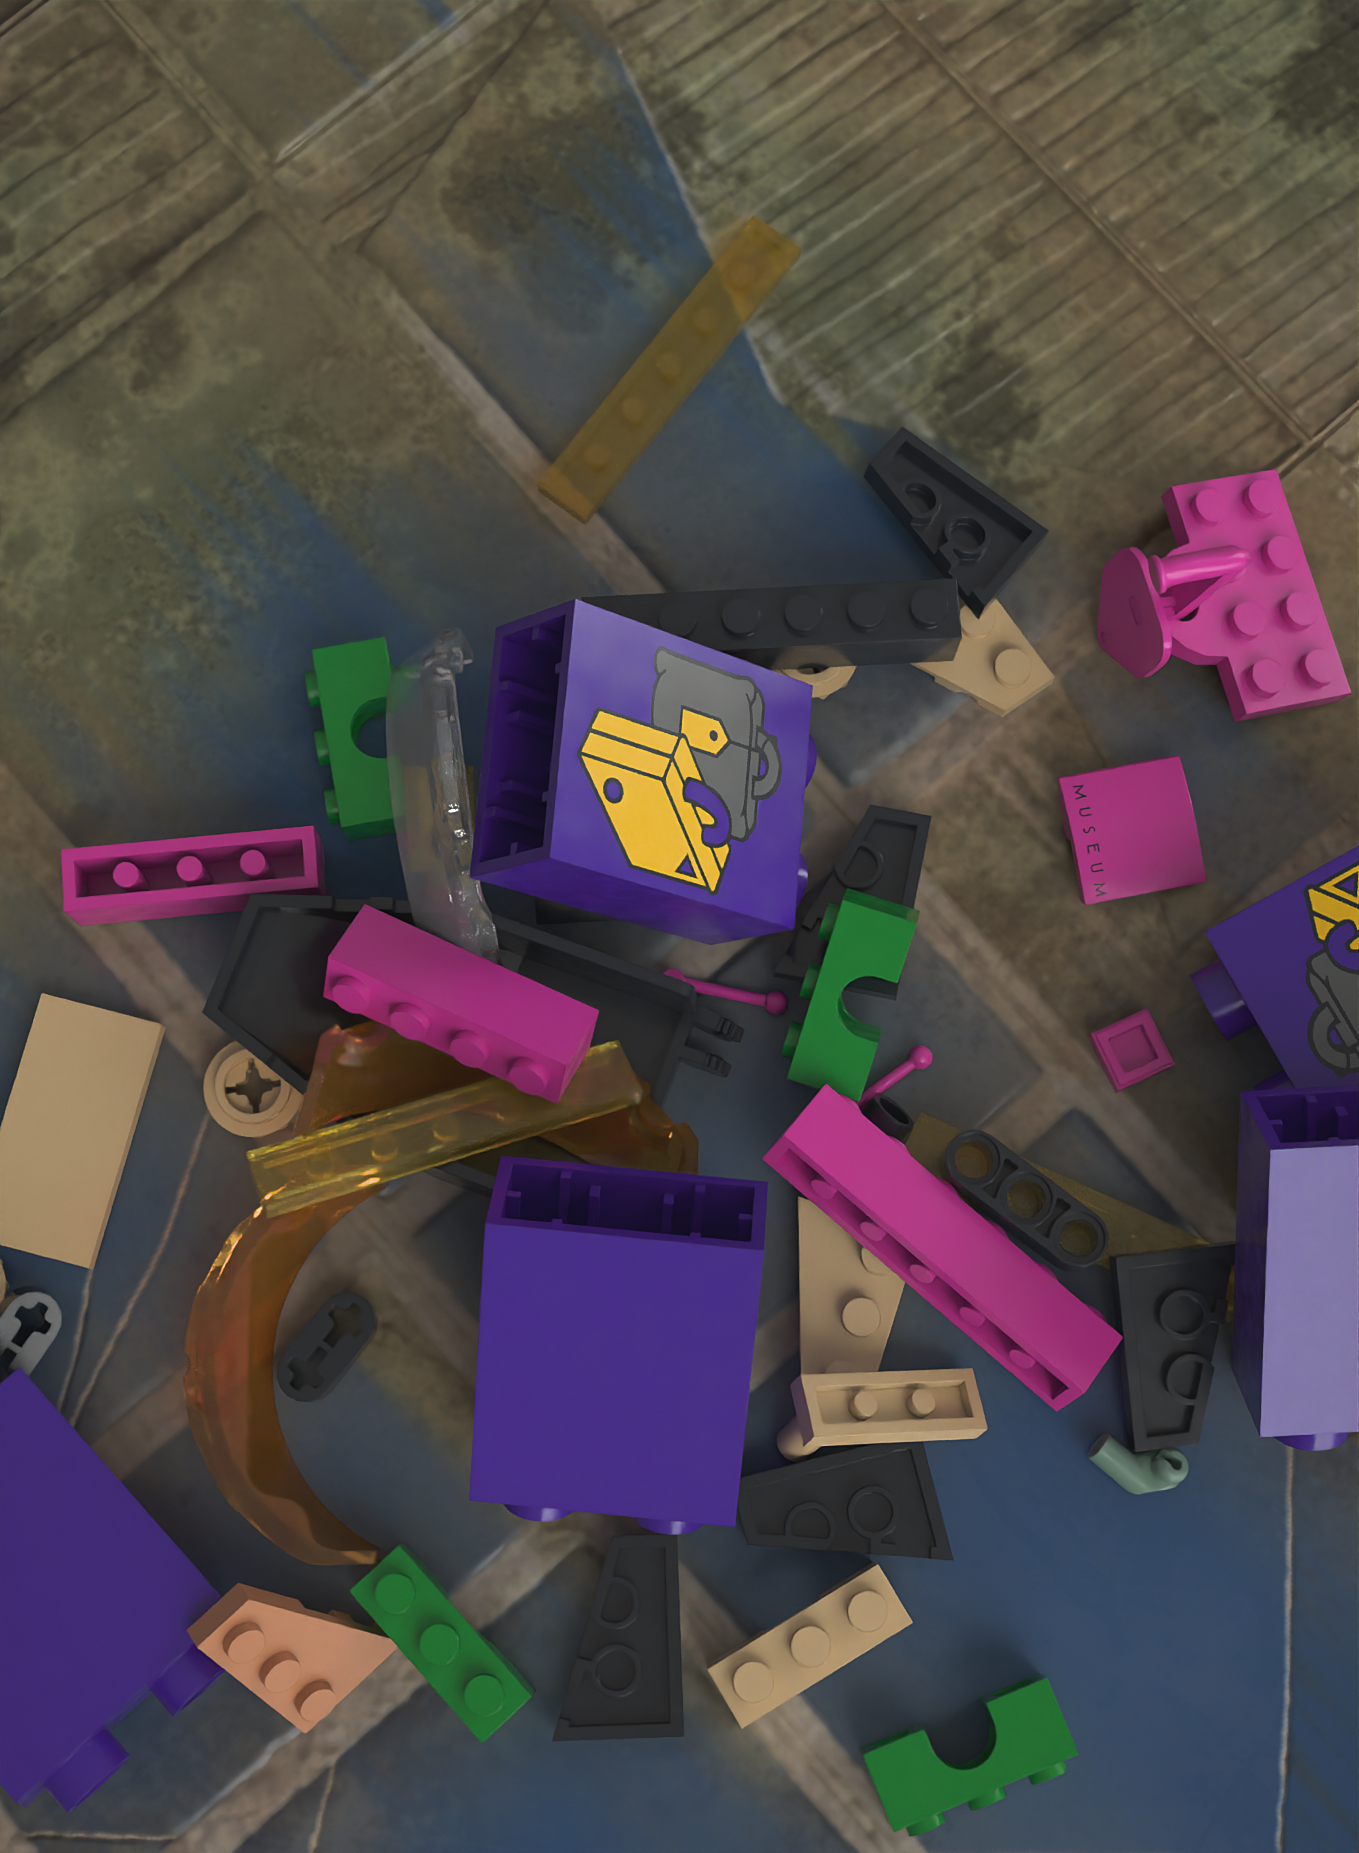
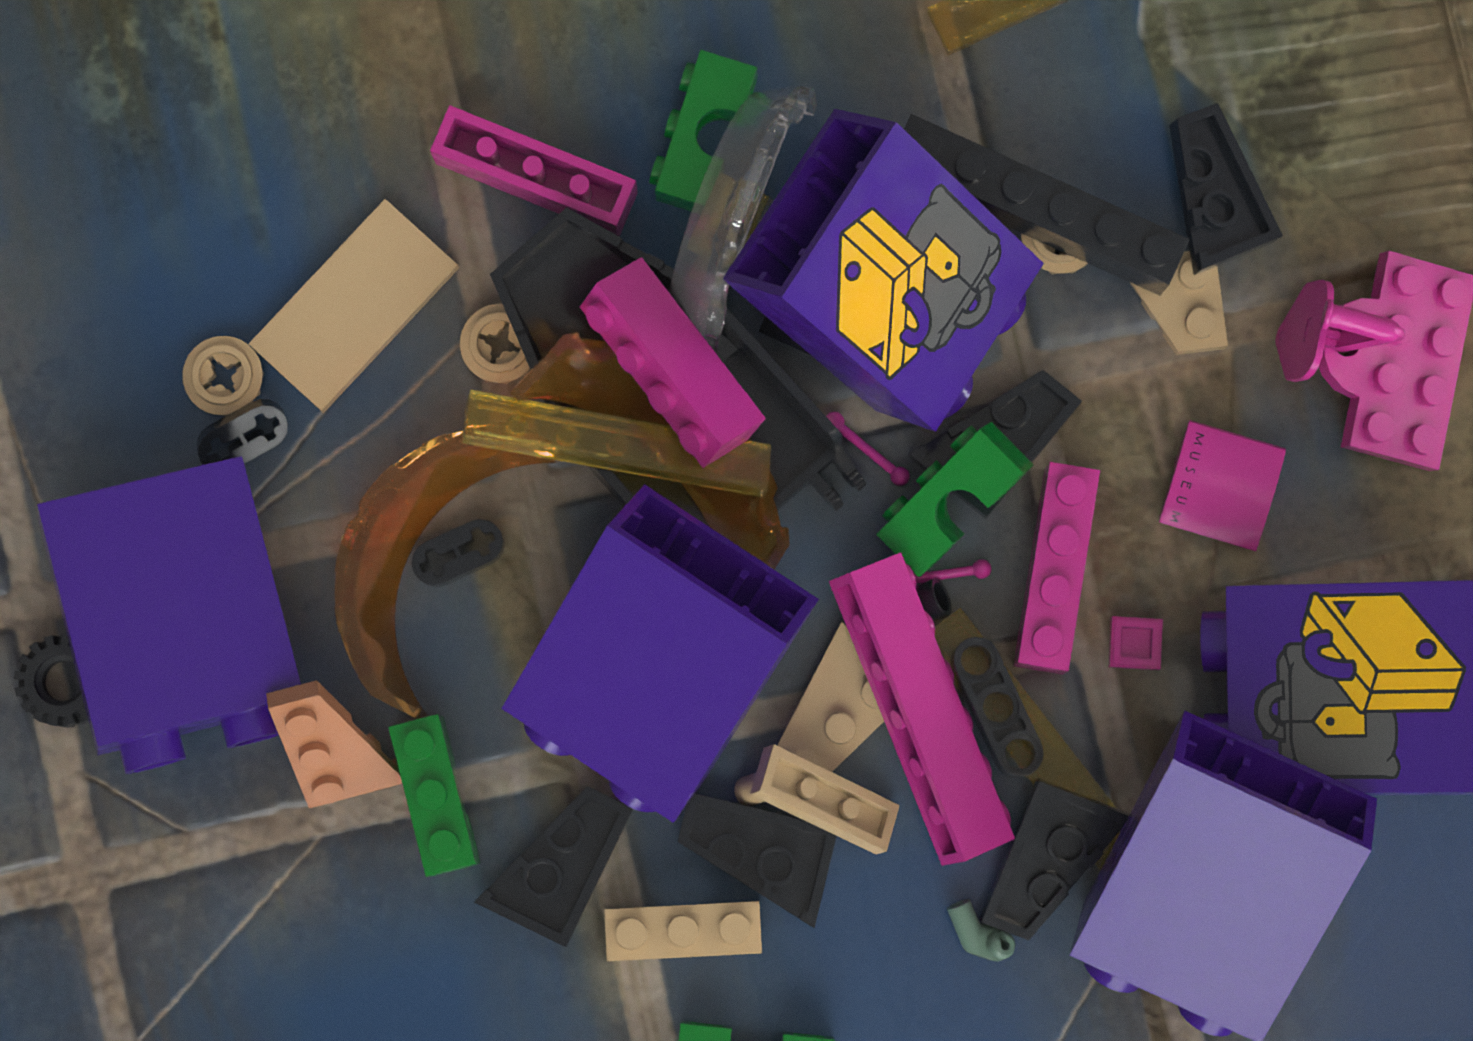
camera: 30 degrees right, 5 degrees up
(1003, 1013) = (1056, 568): none -> dark pink brick

